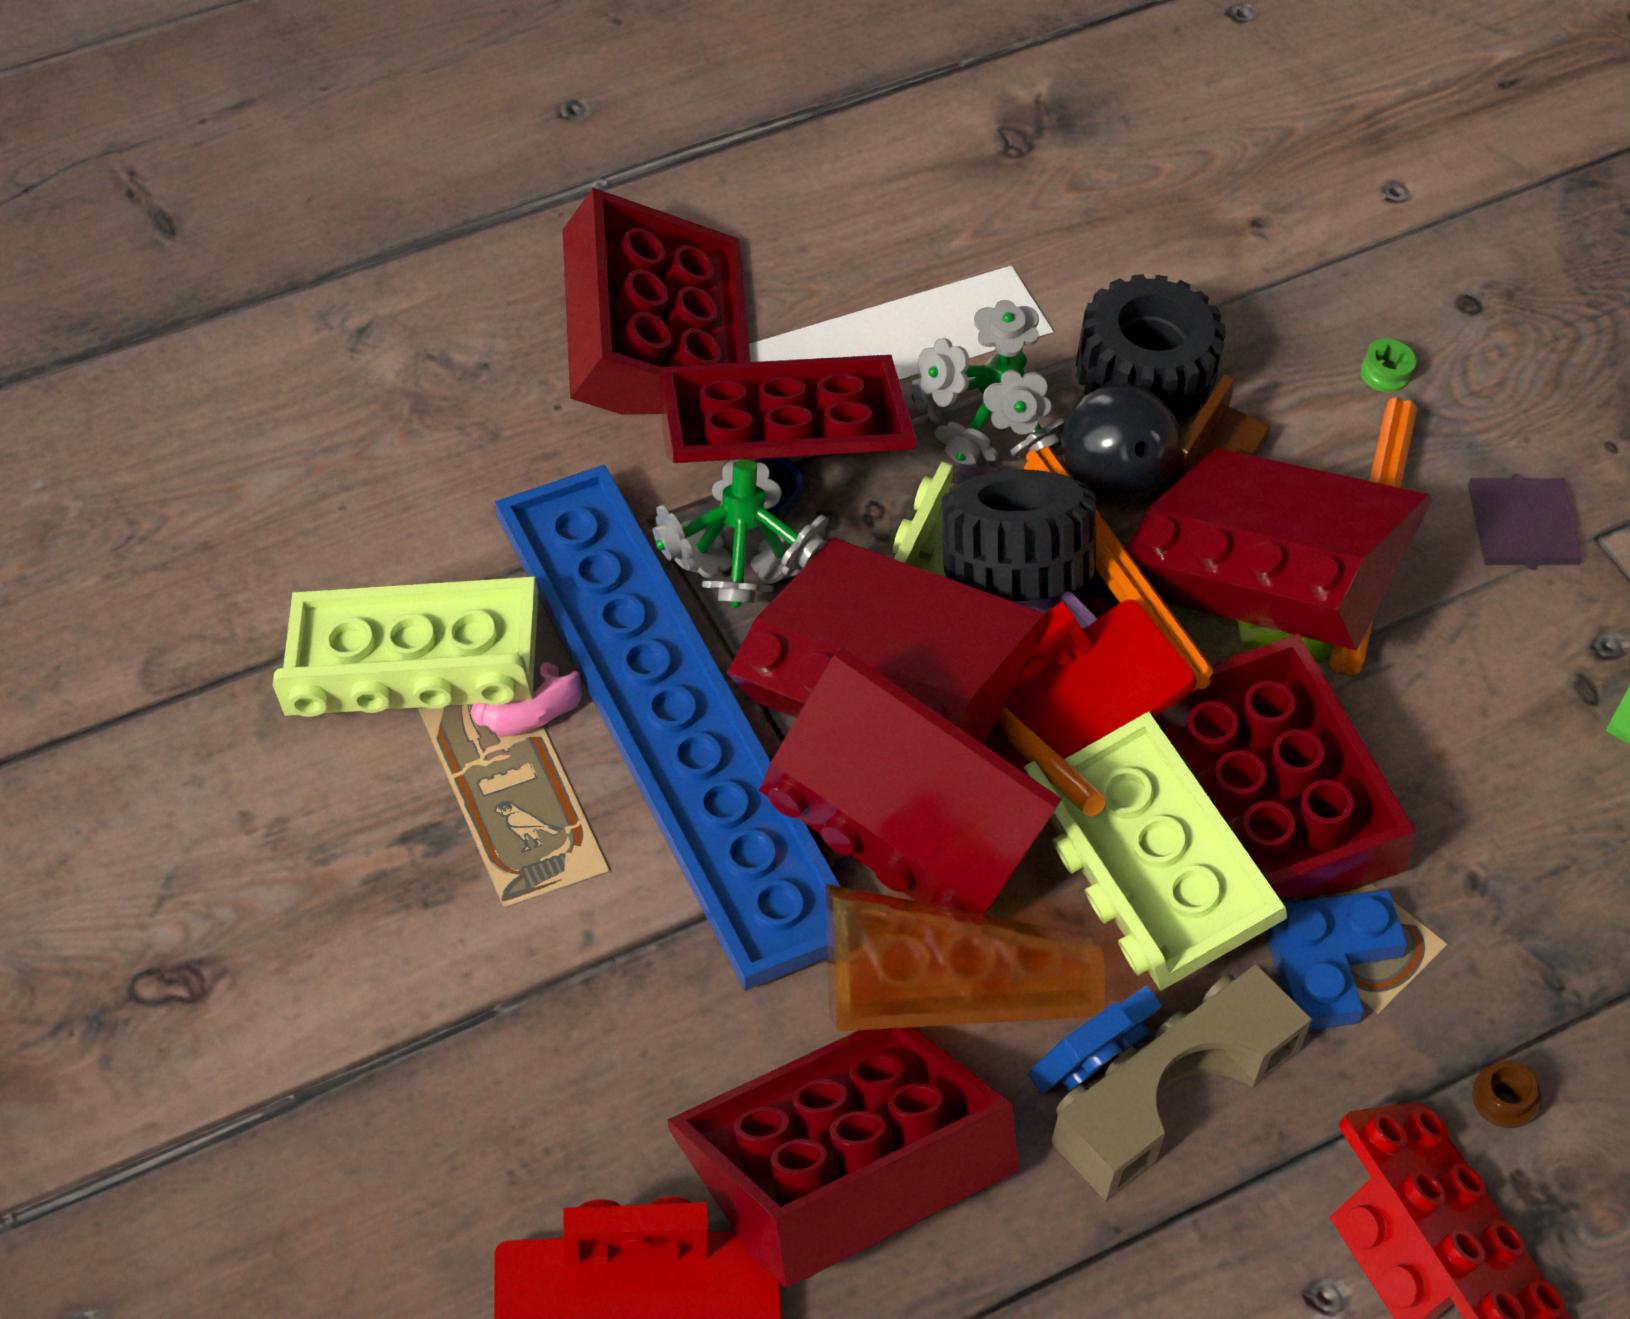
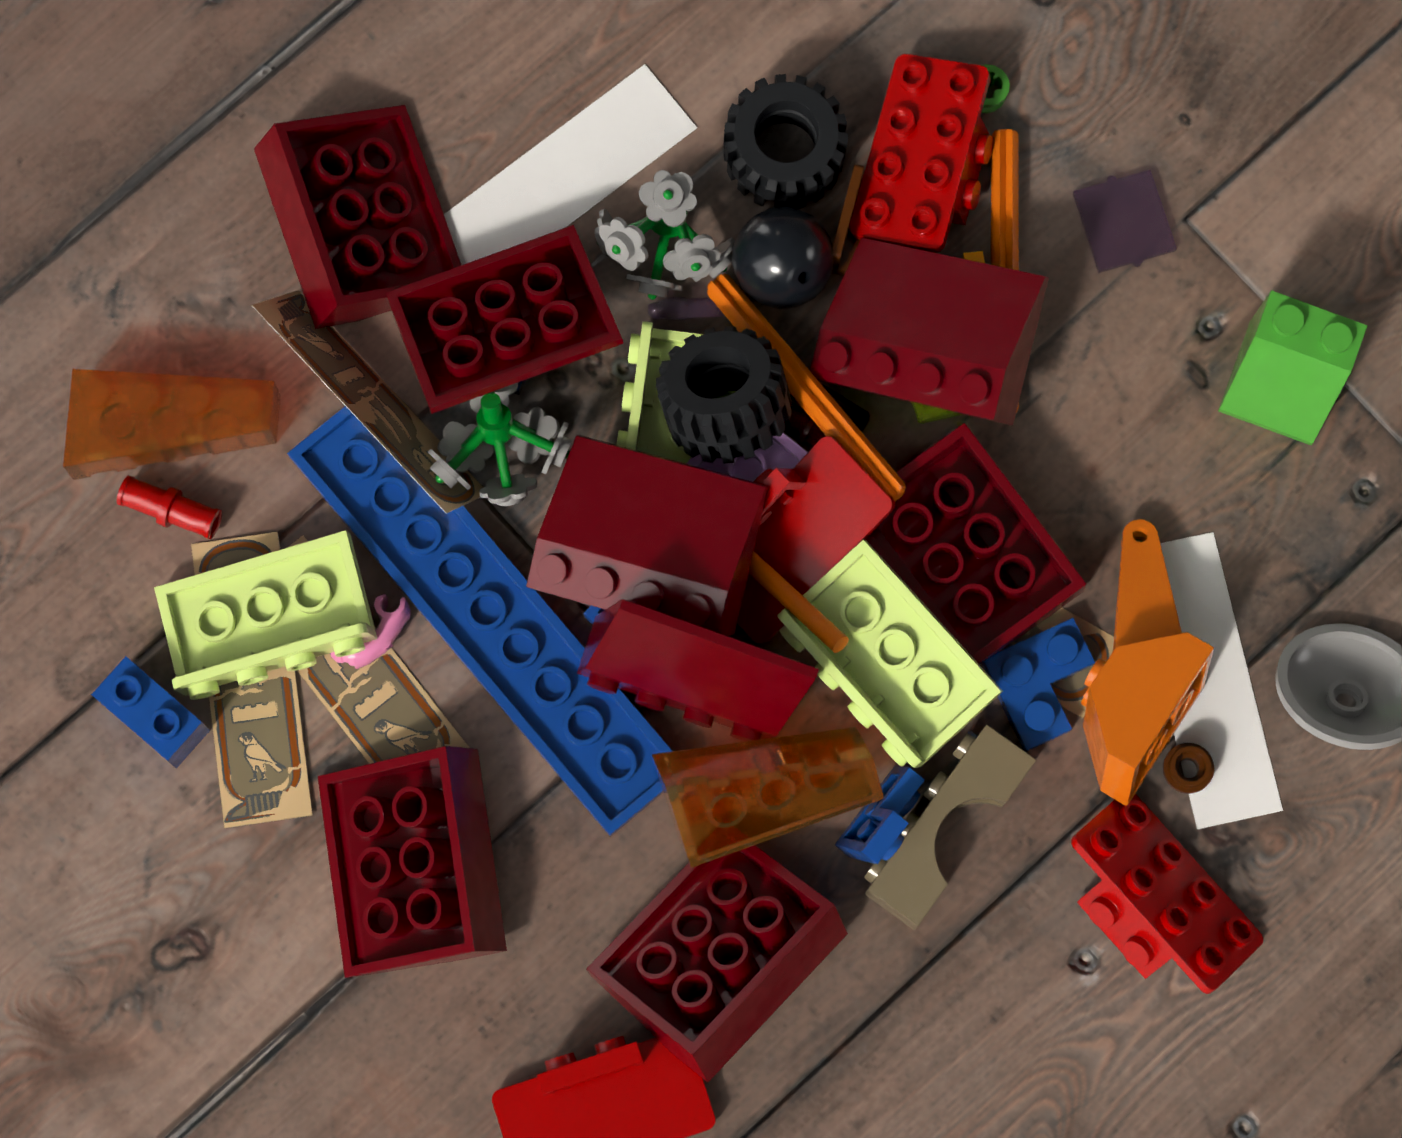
camera: 15 degrees left, 25 degrees up
(237, 712) = (151, 712): none -> blue brick
(342, 525) = (169, 507): none -> red pin
(353, 785) = (258, 723): none -> sticker
(370, 436) = (155, 418): none -> clear orange wedge
(490, 950) = (411, 862): none -> dark red slope
(607, 471) = (365, 396): none -> sticker
(1310, 391) = (924, 154): none -> red bracket
(1466, 966) = (1150, 676): none -> orange slope
(1546, 1012) = (1226, 710): none -> white sticker

